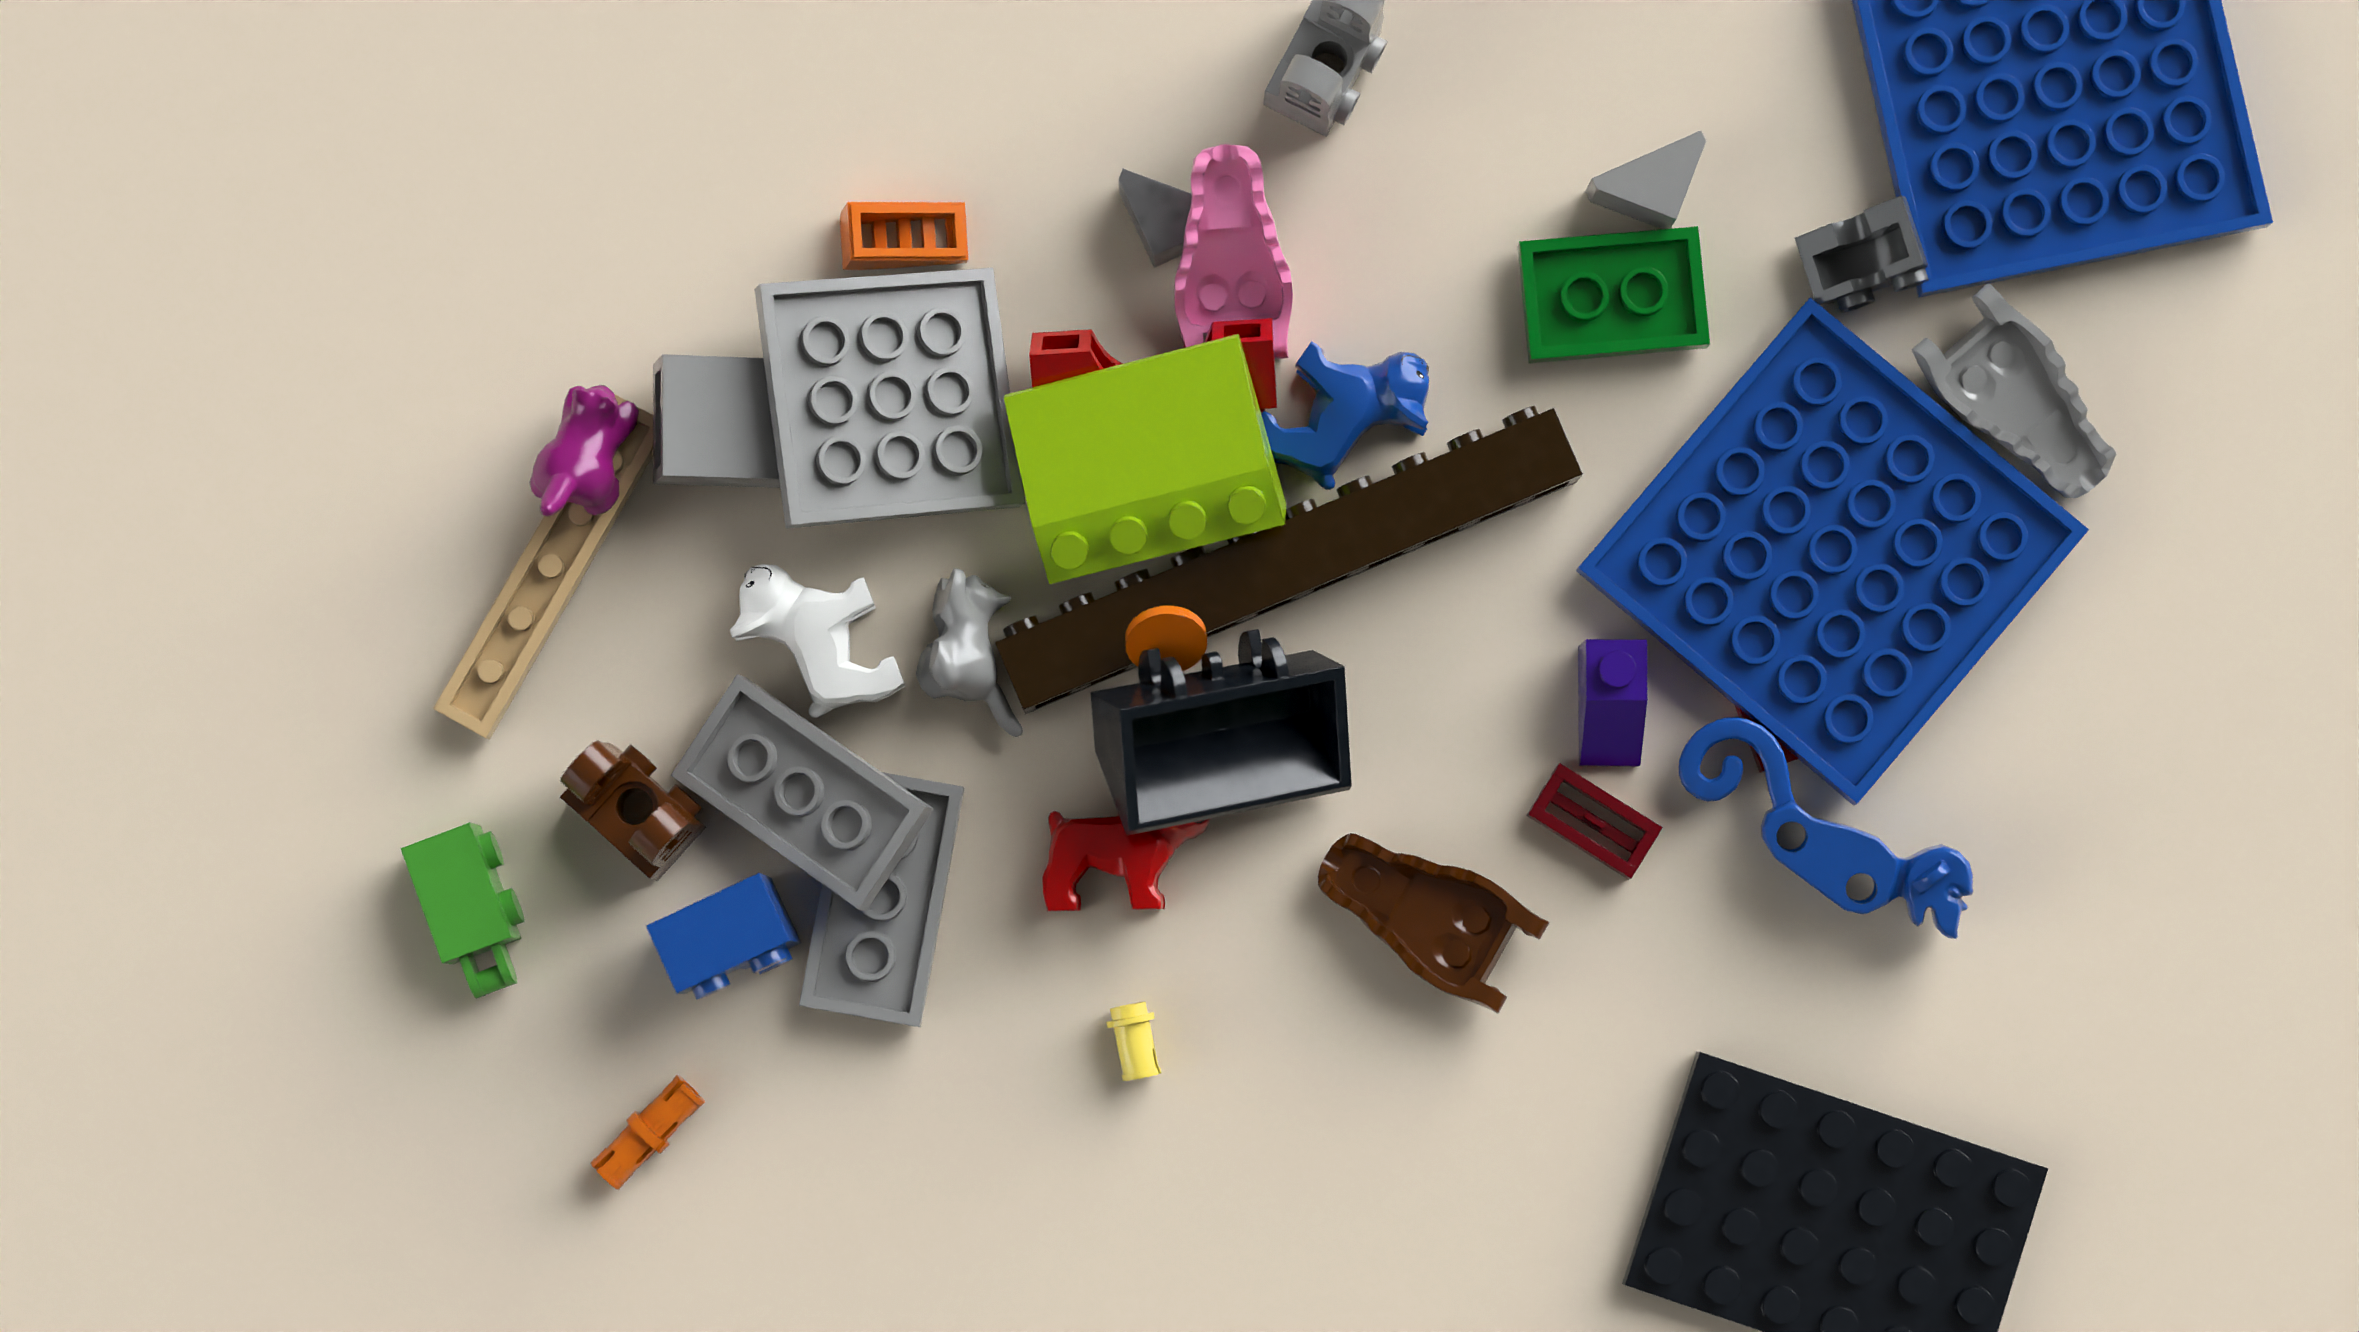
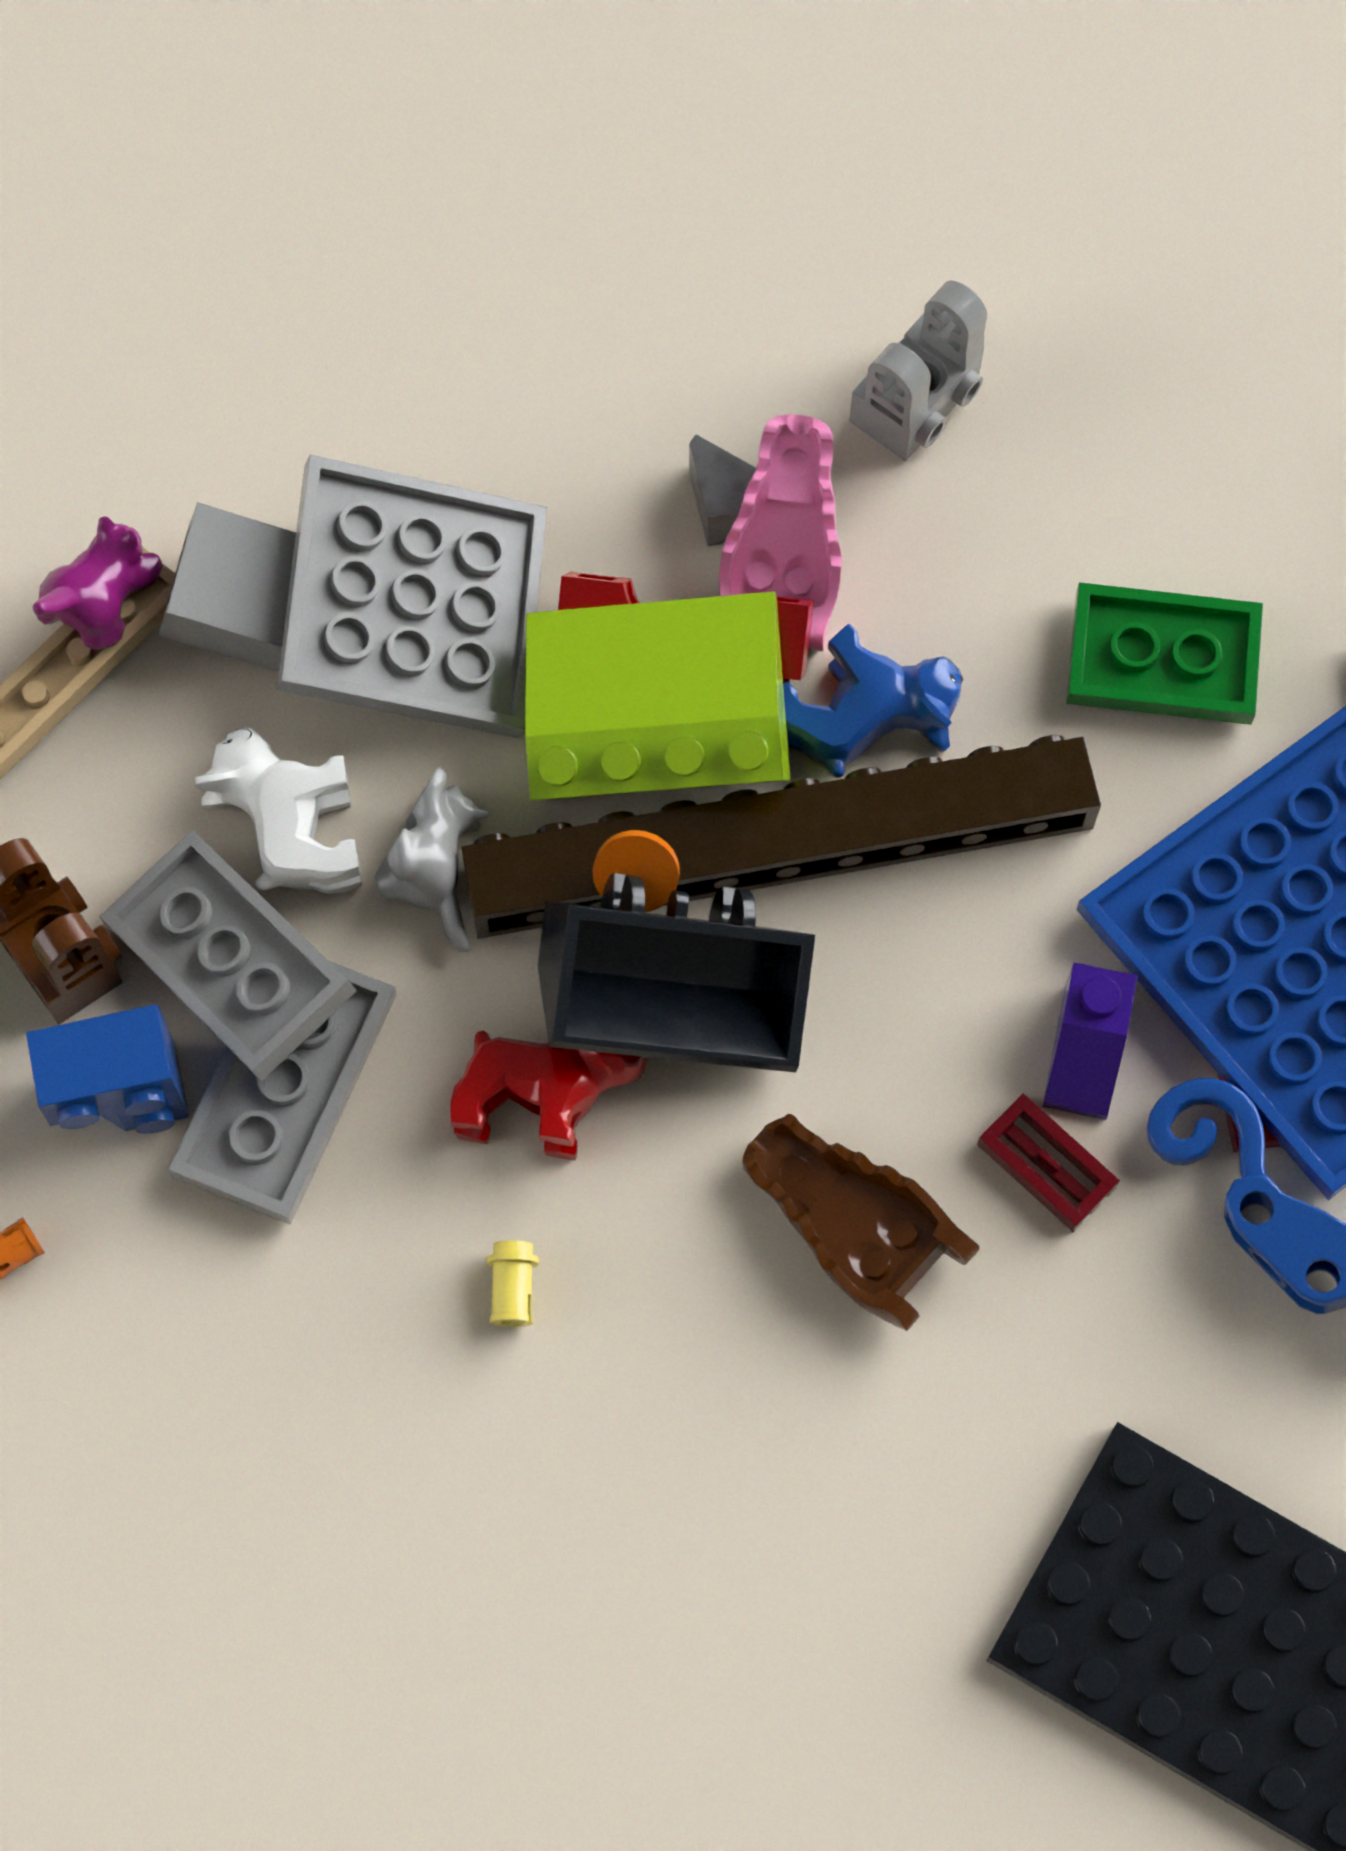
camera: 15 degrees right, 15 degrees down
(879, 213) = (451, 440): orange slope -> none
(1651, 185) = (1220, 555): light grey slope -> none

